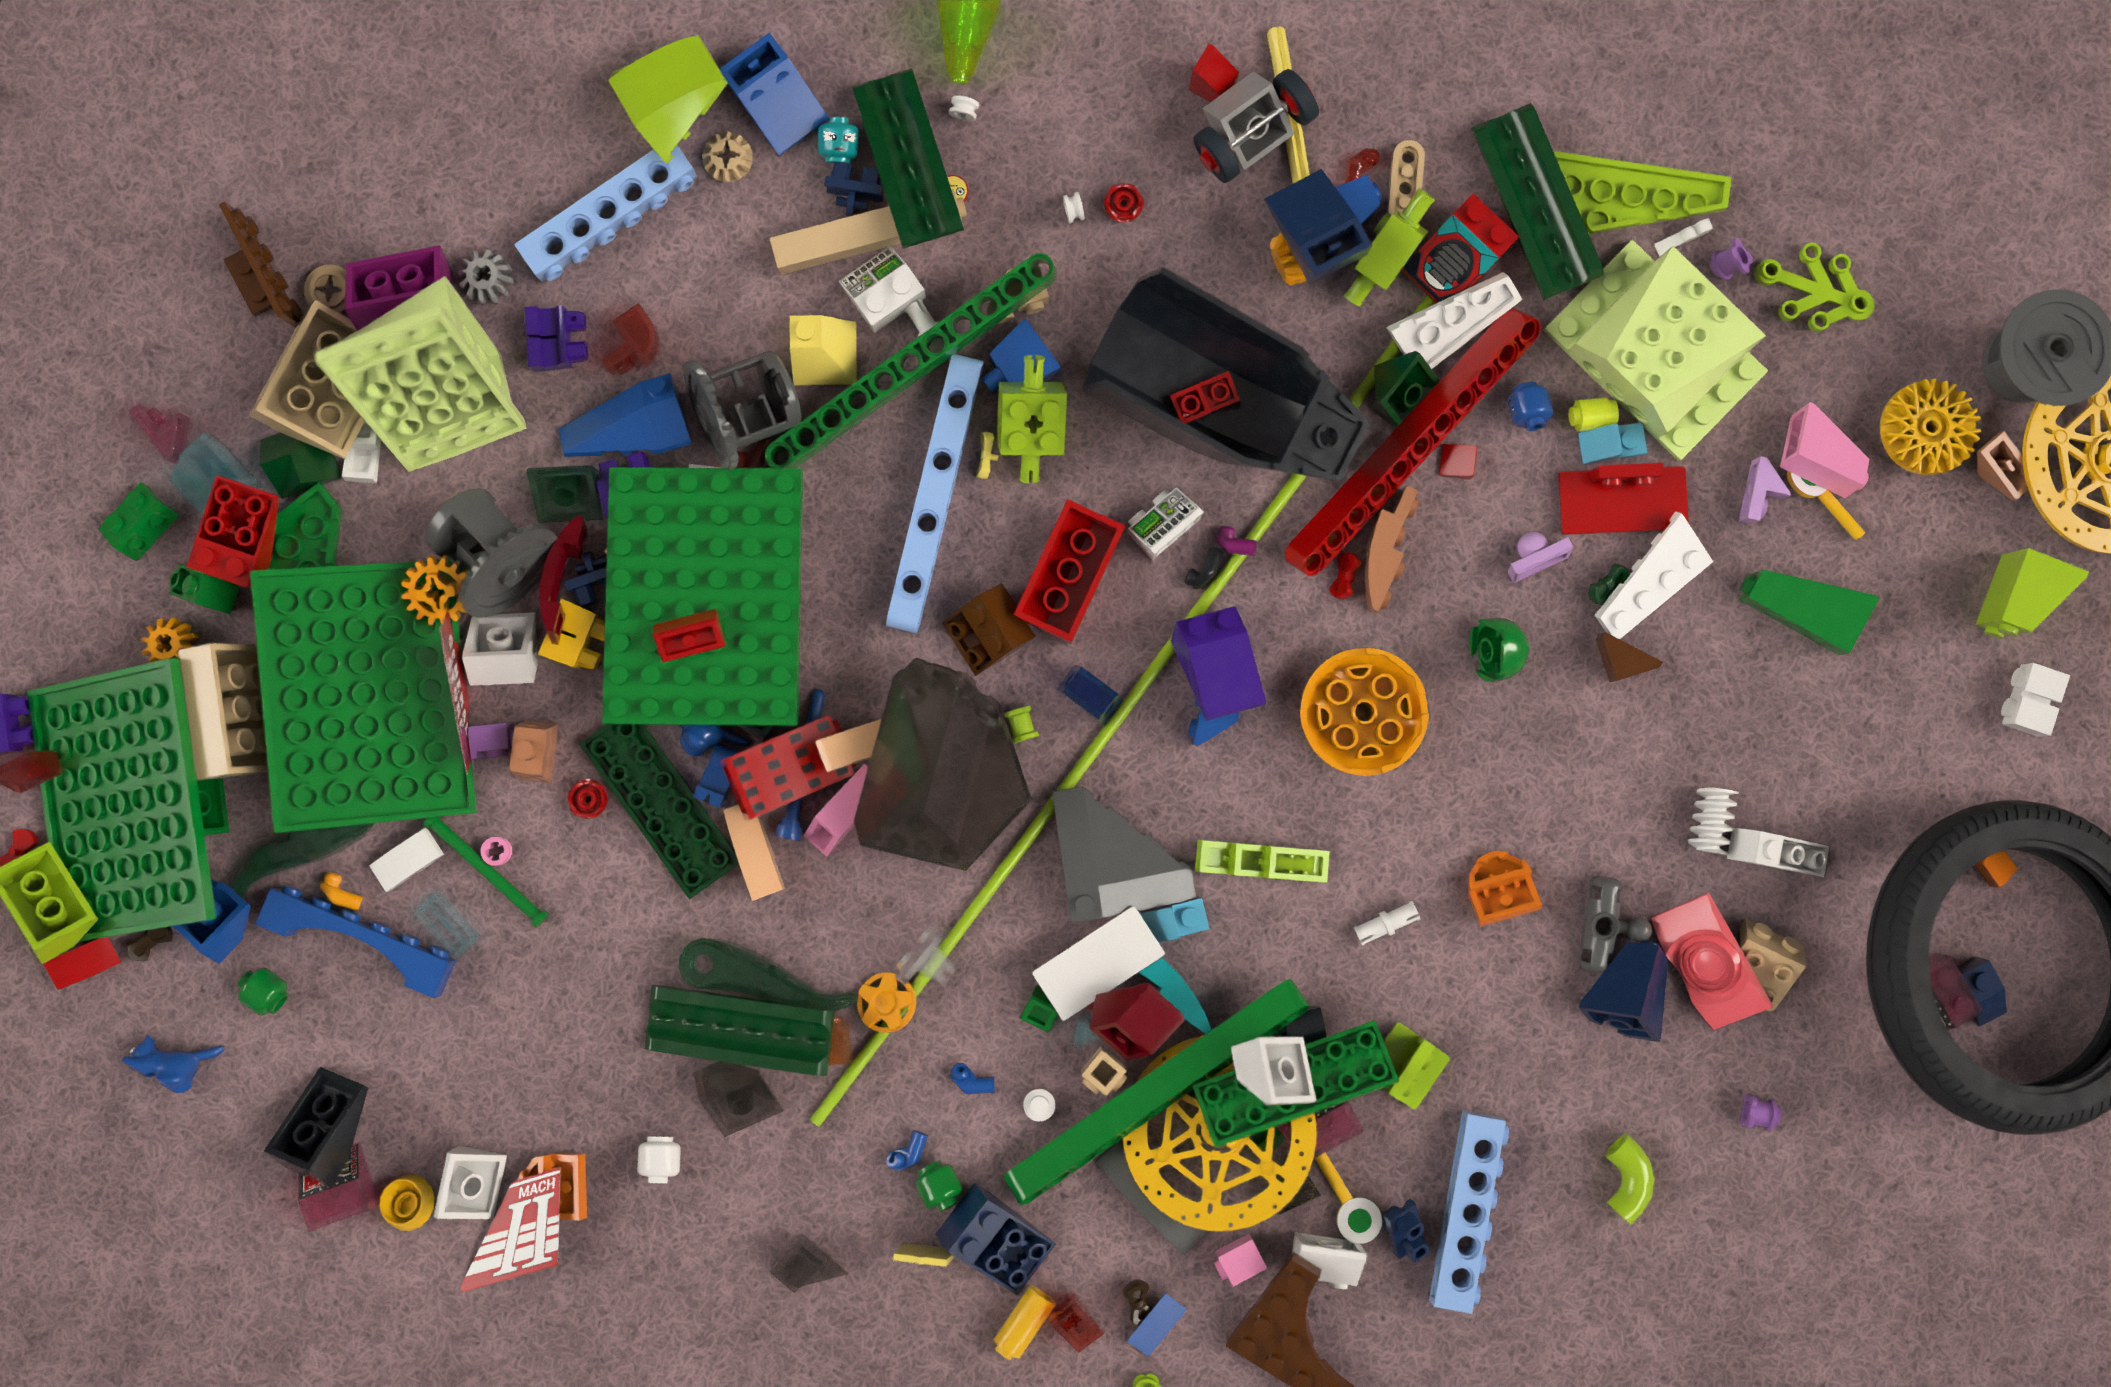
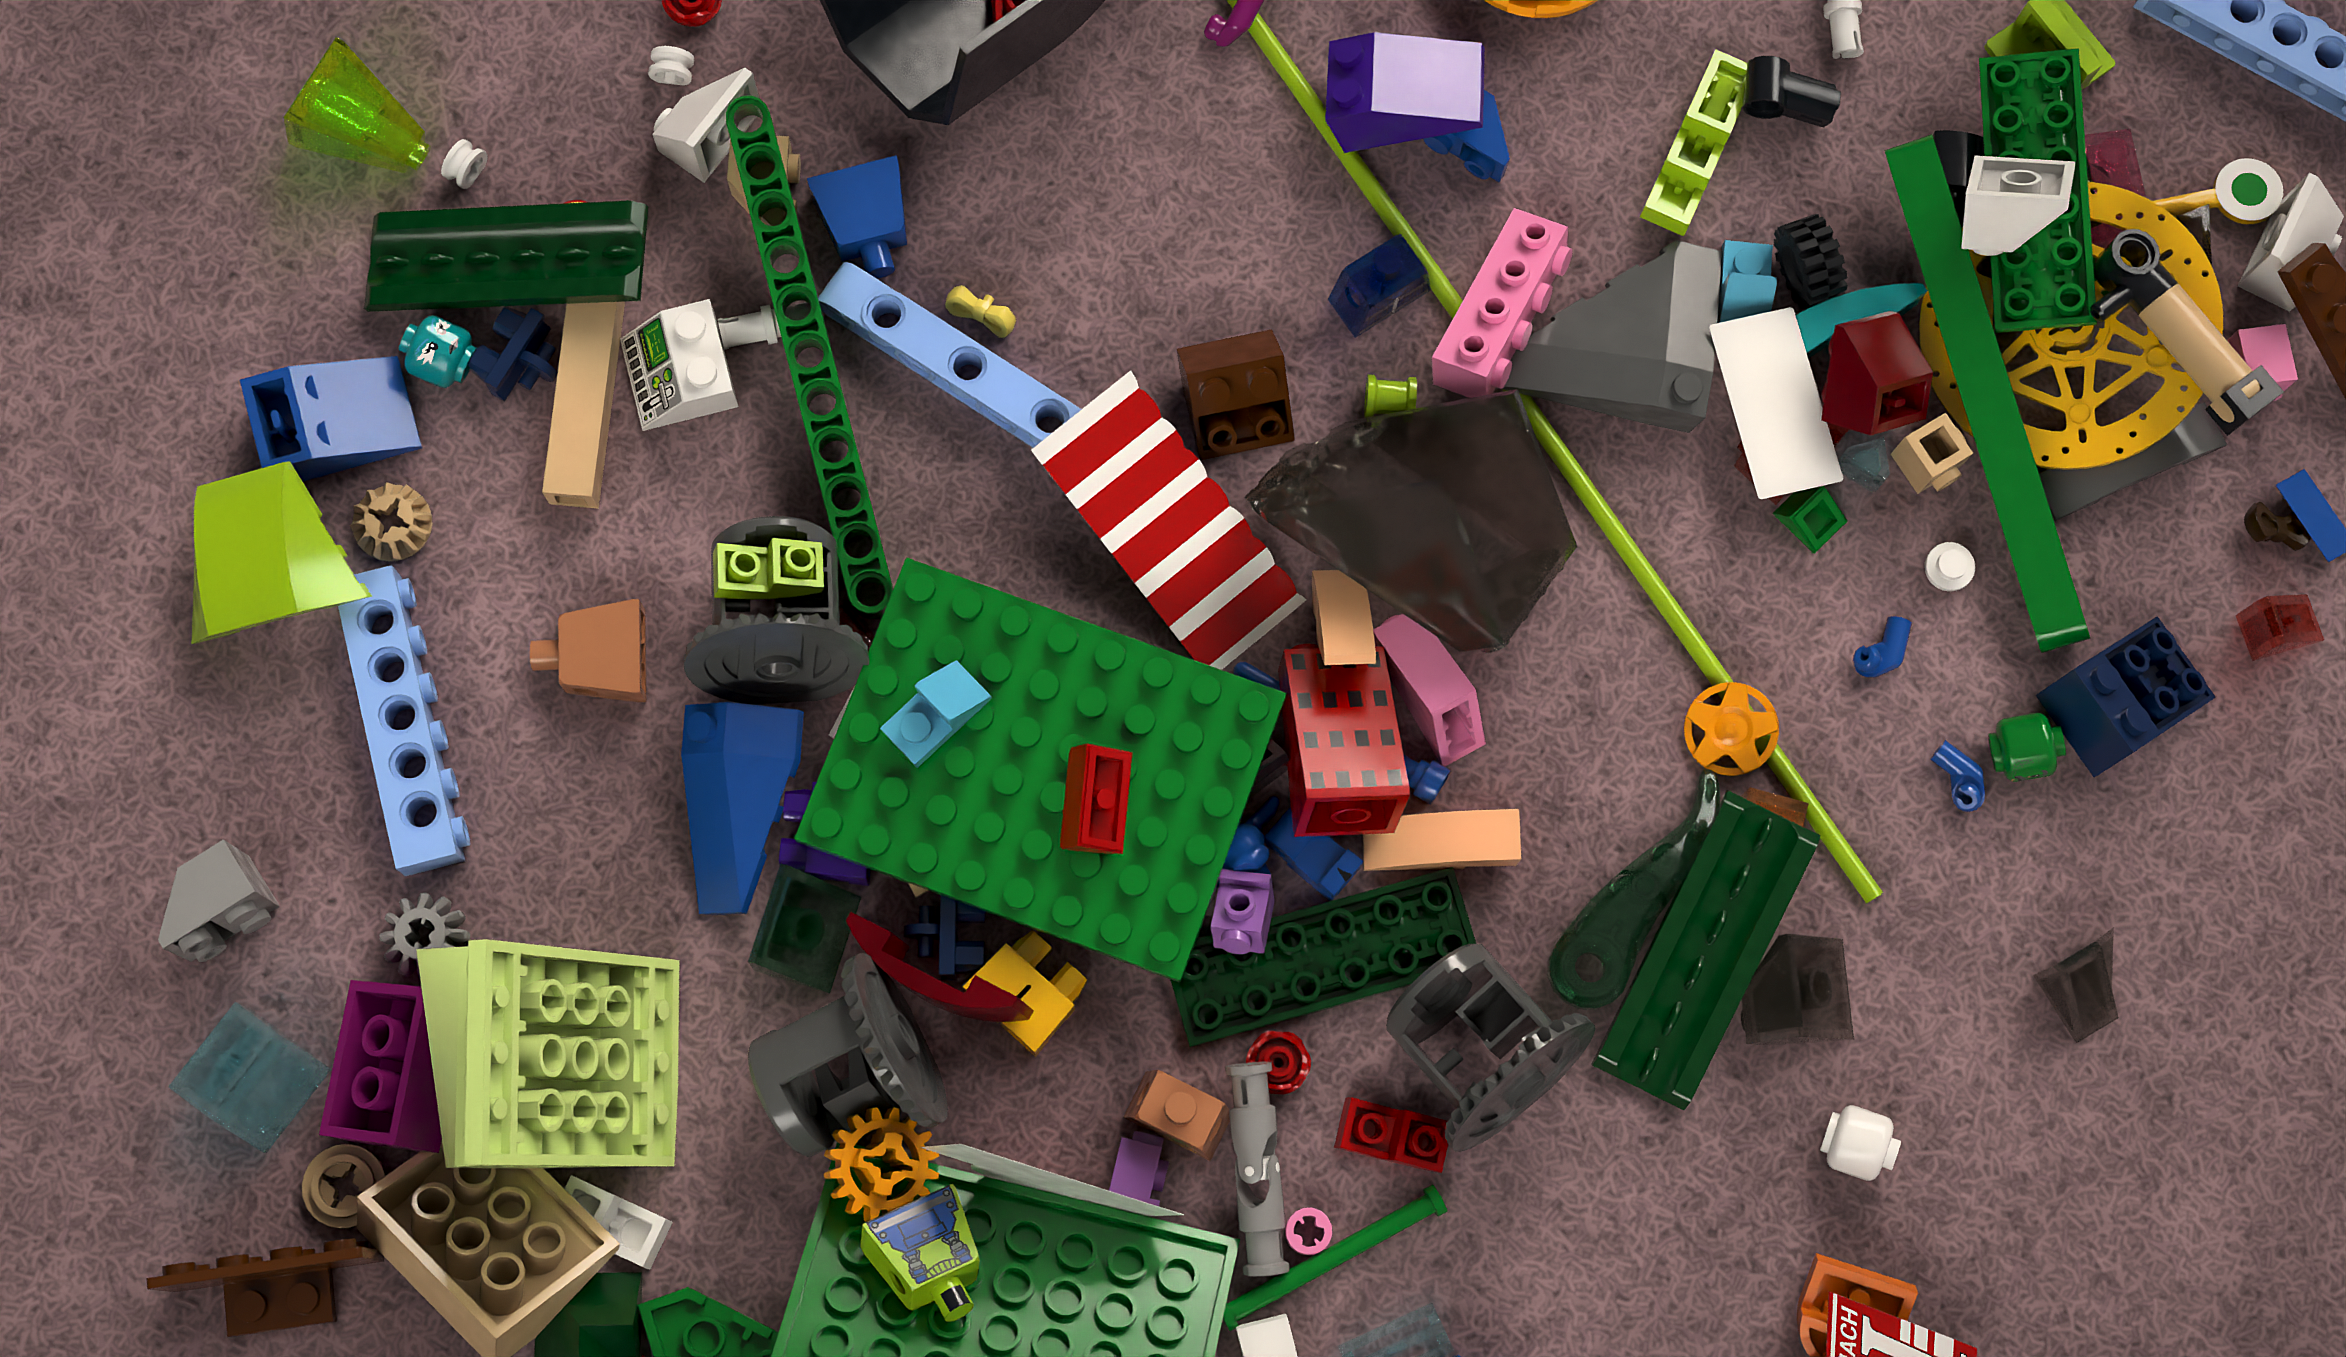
camera: 70 degrees left, 10 degrees down
(368, 211) = (250, 1077): none -> clear light blue slope
(392, 634) = (925, 1252): none -> torso
(457, 149) = (213, 901): none -> light grey slope
(501, 649) = (1005, 1106): white slope -> none
(520, 806) = (1254, 1142): none -> light grey piece
(550, 338) = (558, 871): dark purple hips -> none
(570, 881) = (1392, 1135): none -> red slope
(641, 343) = (612, 736): clear red brick -> none
(652, 921) = (1502, 1018): none -> dark grey piece
(656, 756) = (1242, 912): none -> medium lavender brick
(688, 310) = (598, 651): none -> nougat torso
(708, 521) = (936, 712): none -> medium azure slope
(757, 390) = (768, 572): none -> lime slope
(823, 350) = (734, 480): light yellow slope -> none
(885, 617) = (1168, 524): none -> red sticker
(923, 1254) = (2123, 794): light yellow piece -> none
(928, 958) = (1685, 639): clear plate -> none
(1015, 407) = (956, 218): lime brick -> none
(1023, 1323) = (2261, 697): yellow brick -> none
(1035, 235) = (696, 128): none -> white slope
(1069, 571) = (1199, 243): red slope -> none
(1100, 772) = (1501, 305): none -> bright pink brick
(1164, 522) = (1174, 96): slope -> none
(1200, 1246) = (2181, 327): none -> piece
(1201, 955) = (1810, 261): none -> black tyre
(1208, 570) = (1263, 72): black arm -> none
(1310, 899) = (1777, 91): none -> black piece
(1406, 1231) = (2284, 128): dark blue hips -> none

